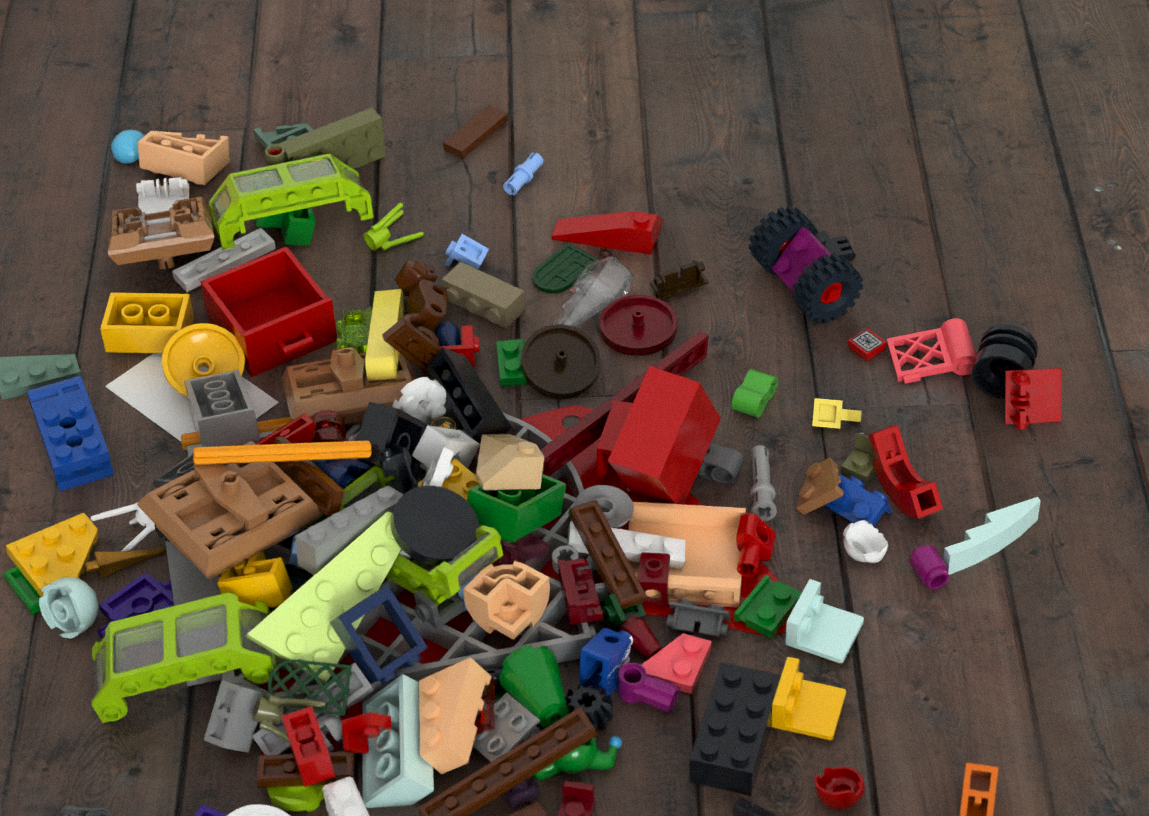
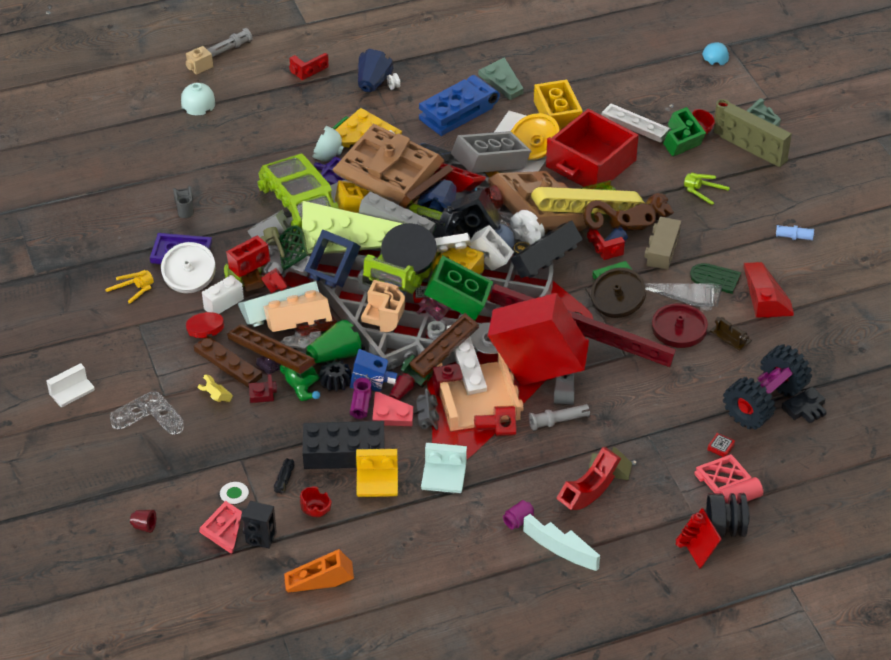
camera: 70 degrees right, 0 degrees up
(160, 235) = (630, 82): medium nougat piece -> none
(161, 198) = (675, 82): white hinge -> none
(183, 157) = (714, 76): light nougat wedge -> none
(281, 452) = (427, 166): light orange axle -> none
(285, 189) = (700, 125): lime windscreen -> none
(412, 344) = (569, 213): reddish brown tile -> none
(466, 251) = (699, 225): light blue bracket -> none
(475, 131) = (827, 200): reddish brown tile -> none
(508, 463) = (482, 273): tan wedge -> none
(579, 592) = (409, 340): dark red hinge -> none
(754, 393) = (639, 394): bright green axle -> none
(767, 606) = (455, 437): green plate -> none
(820, 486) = (574, 442): medium nougat wing -> none
(830, 413) = (637, 438): light yellow plate -> none
(858, 503) = (562, 466): blue bracket -> none
(864, 542) = (524, 476): white hair -> none

